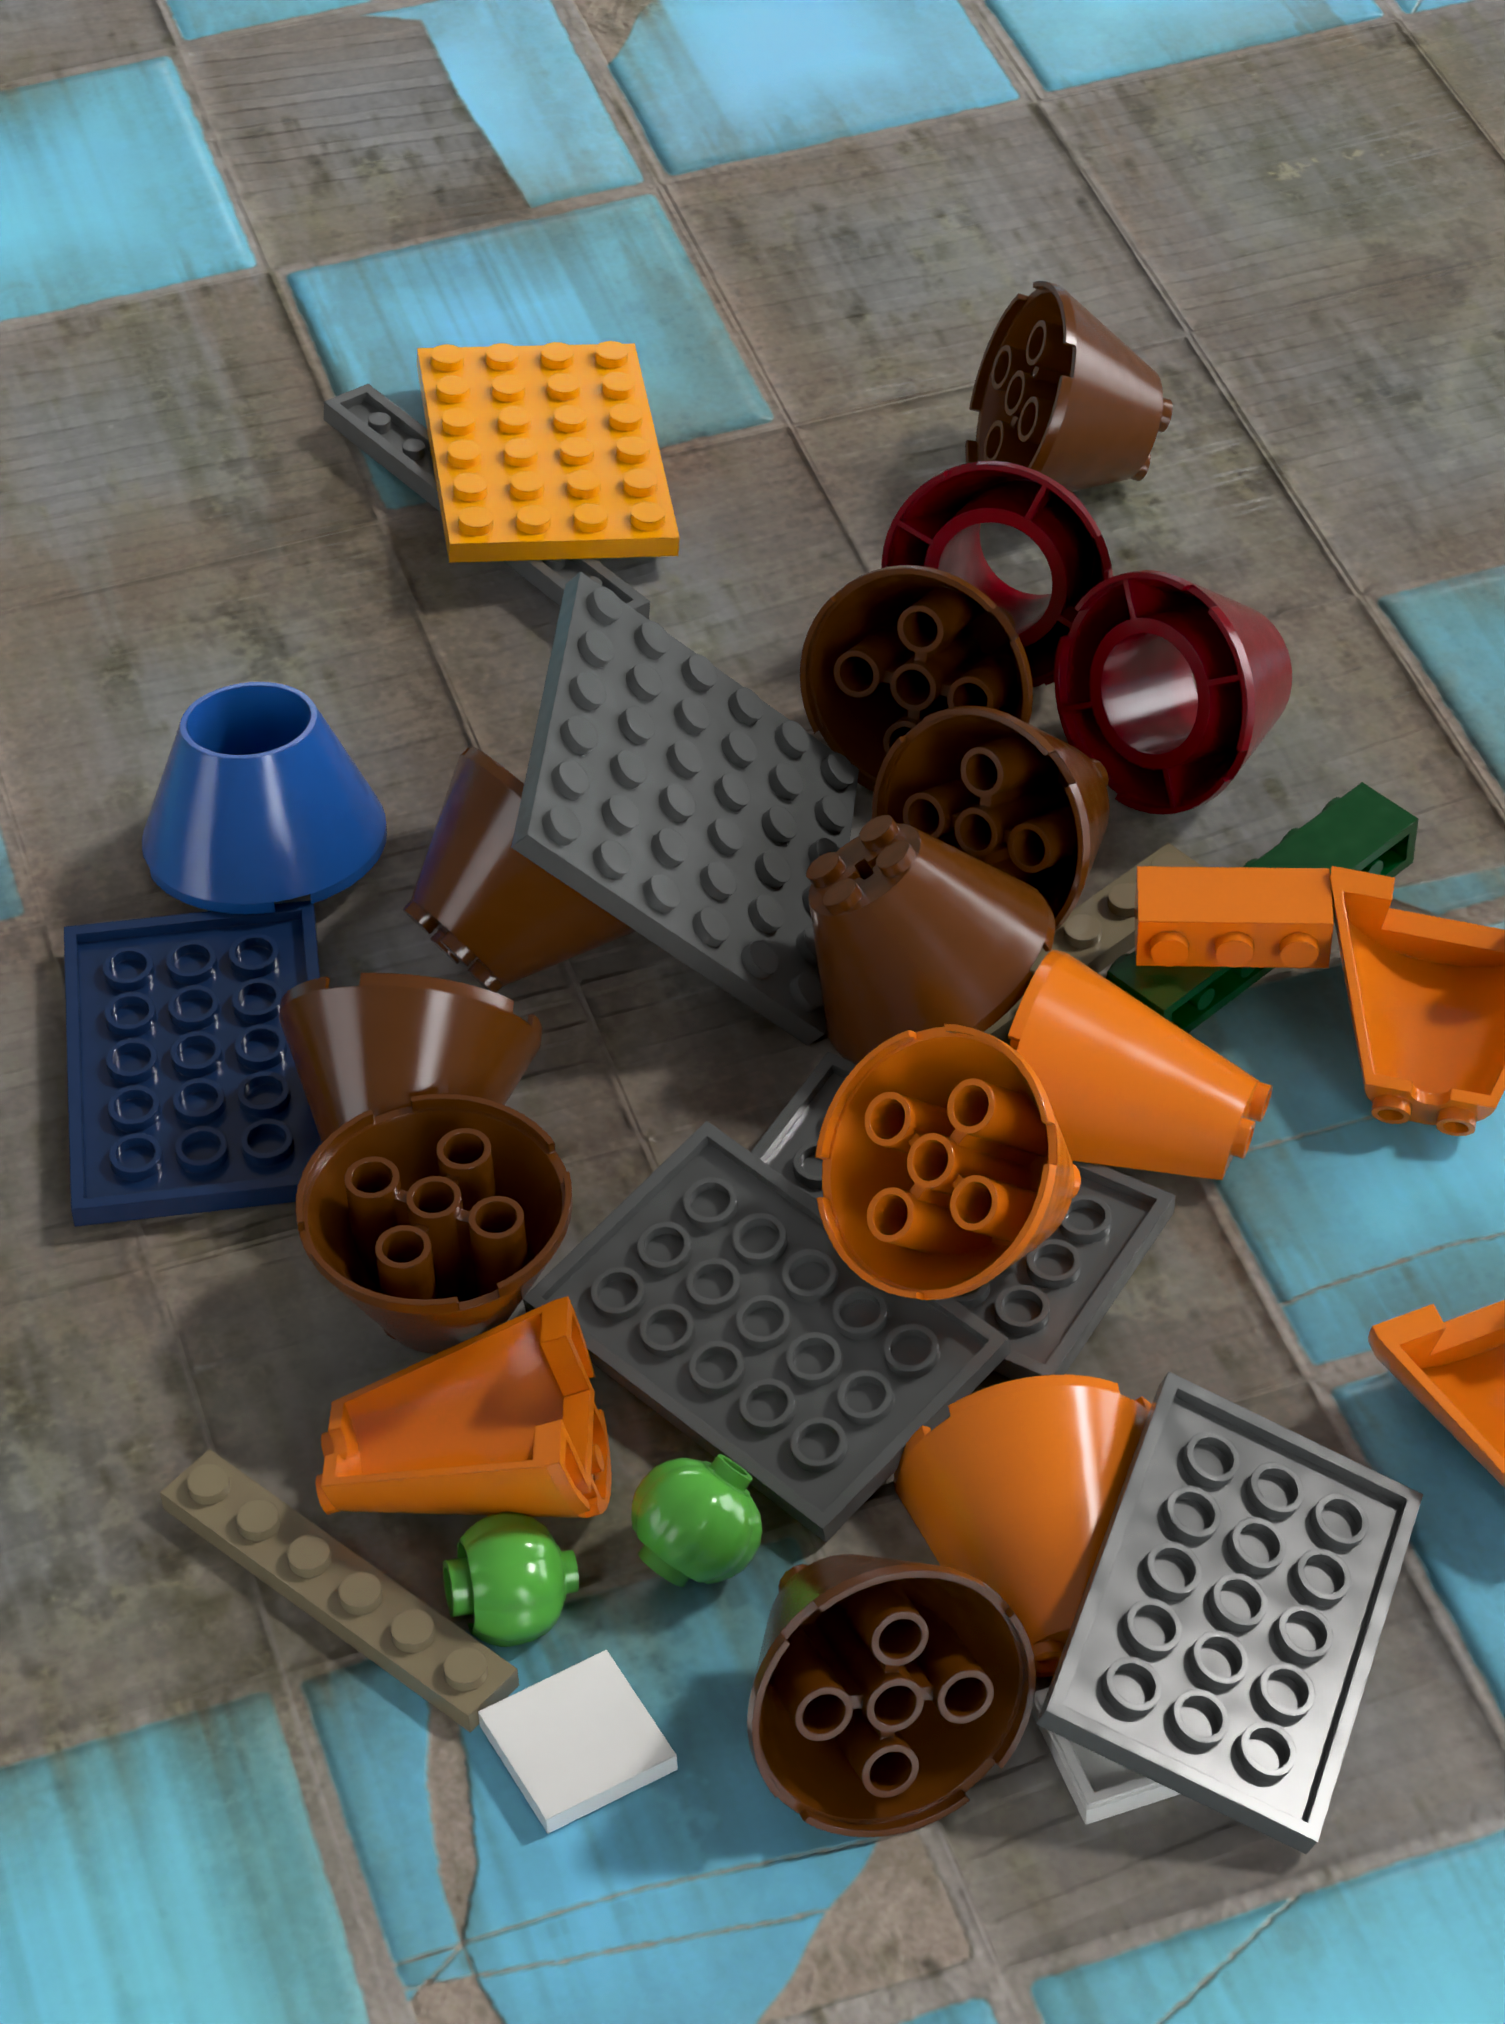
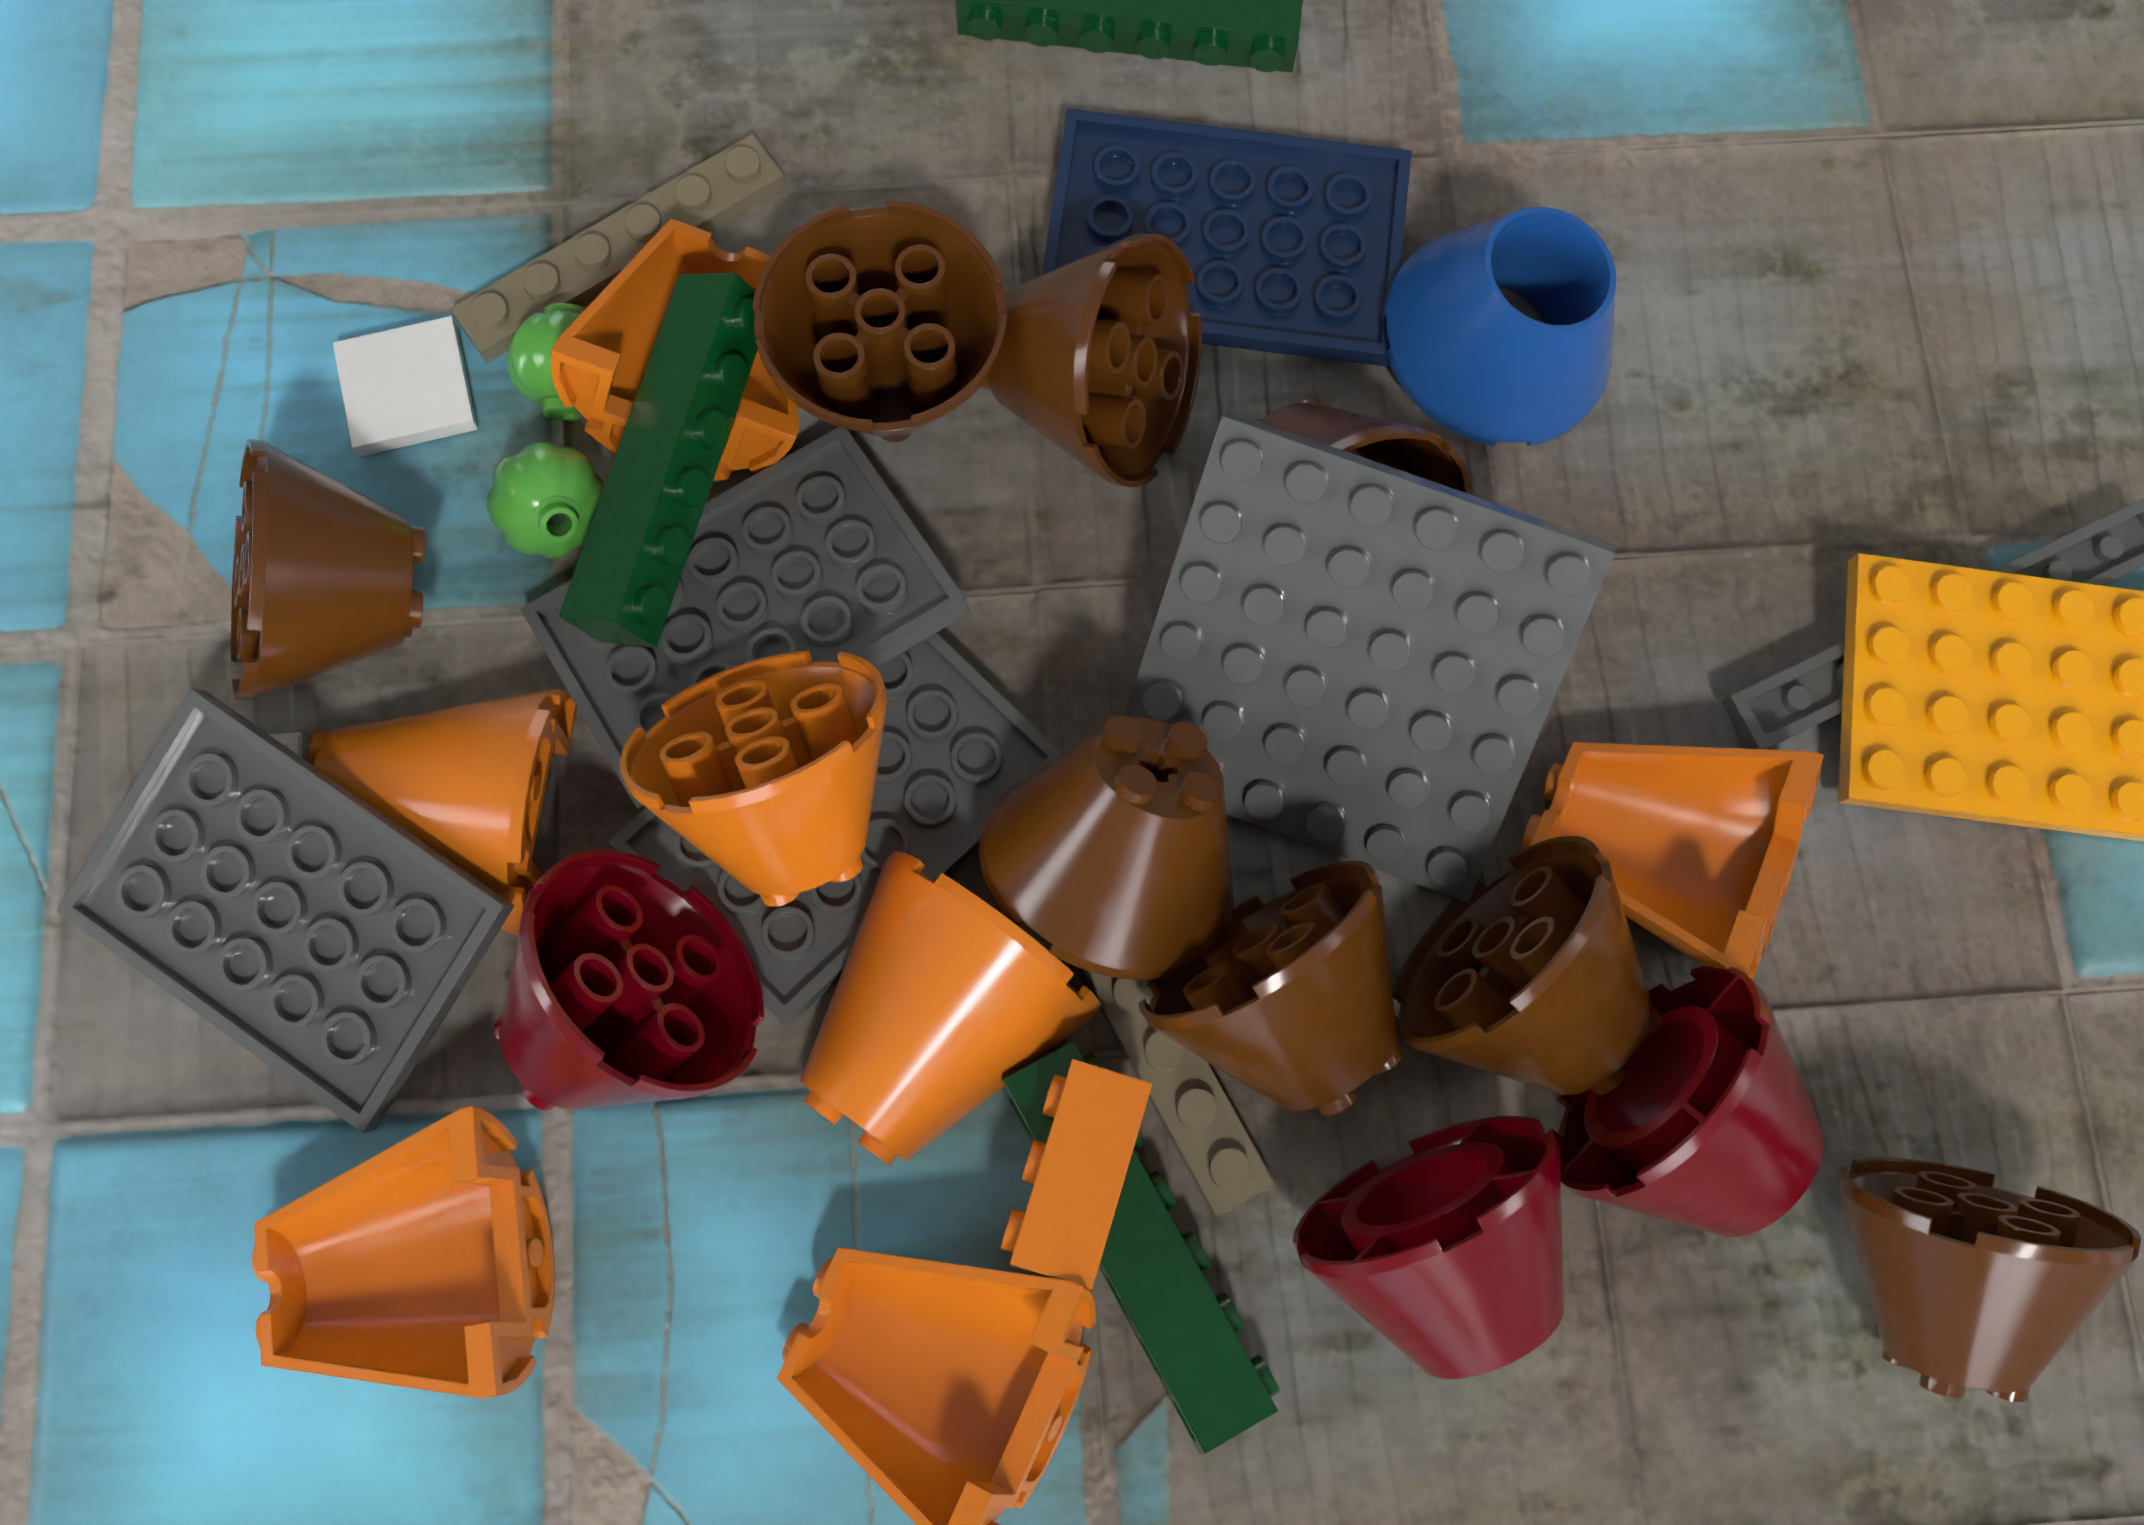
camera: 100 degrees right, 25 degrees up
(633, 1376) = (665, 462): none -> dark green brick
(757, 612) = (1690, 836): none -> orange cone
(1226, 1274) = (625, 989): none -> dark red cone

